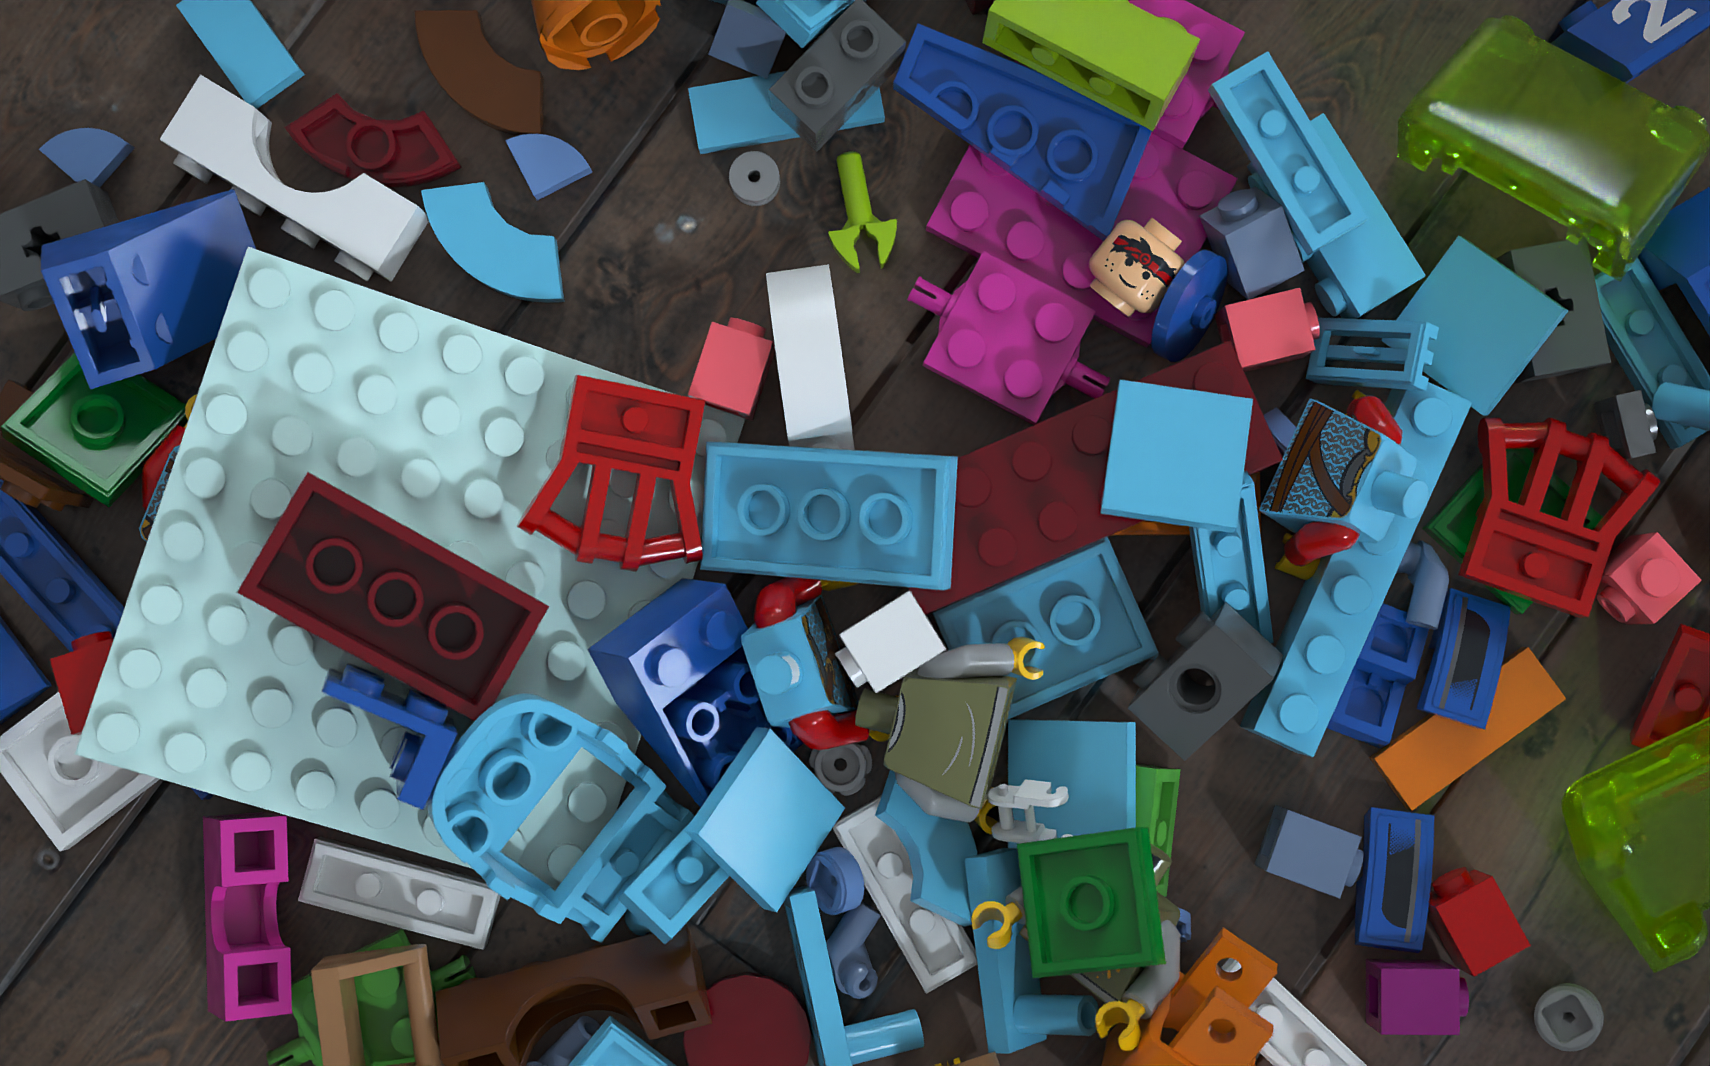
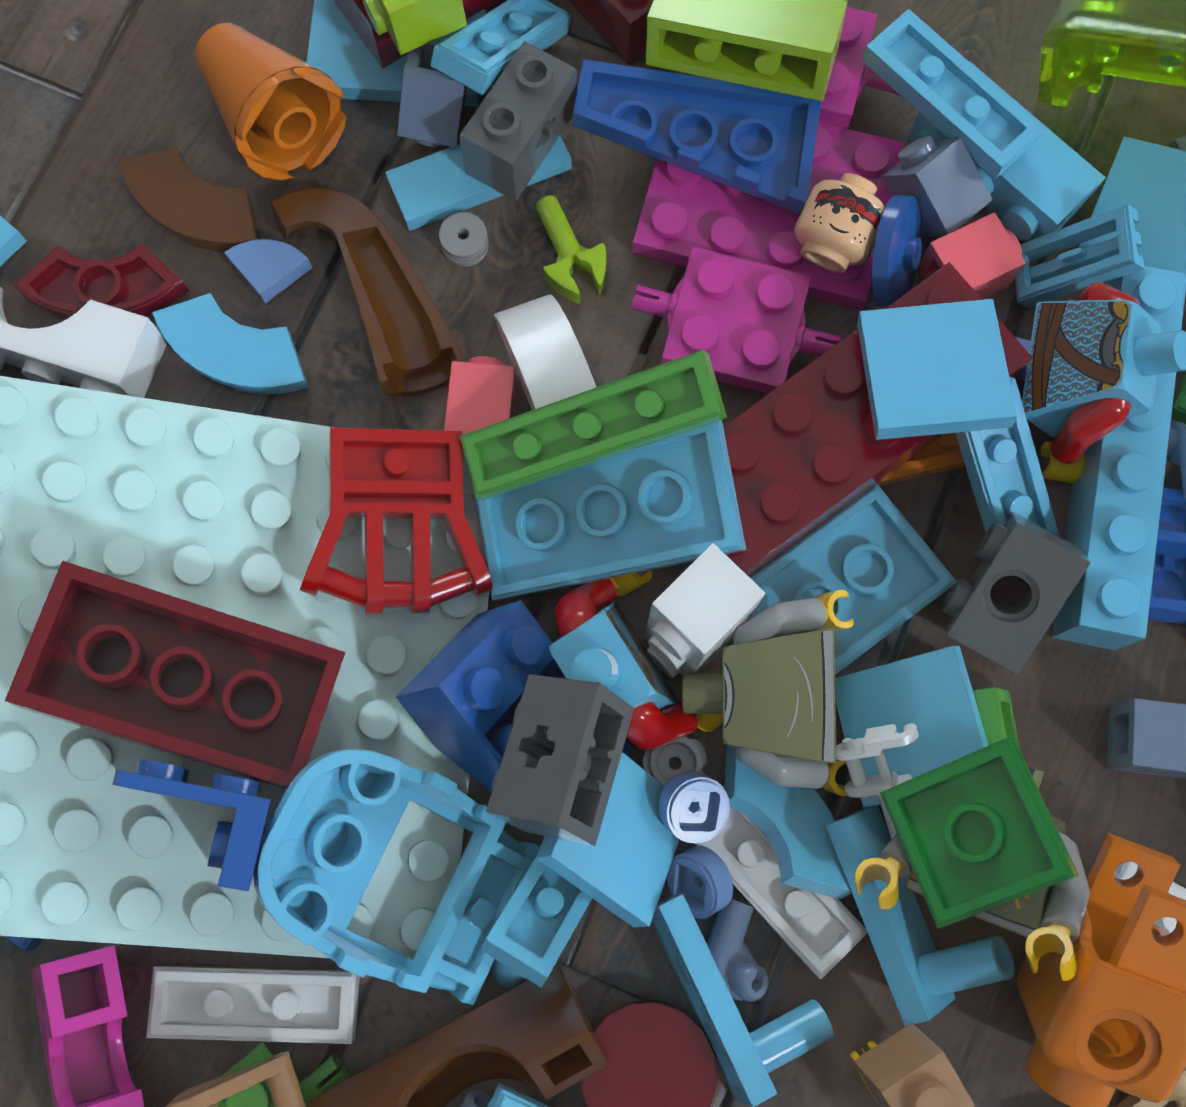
camera: 15 degrees left, 10 degrees down
(670, 253) = (401, 320): none -> reddish brown animal
(726, 750) = (561, 759): none -> dark grey brick
(831, 433) = (594, 425): none -> bright green tile
(845, 812) = (693, 807): none -> tile

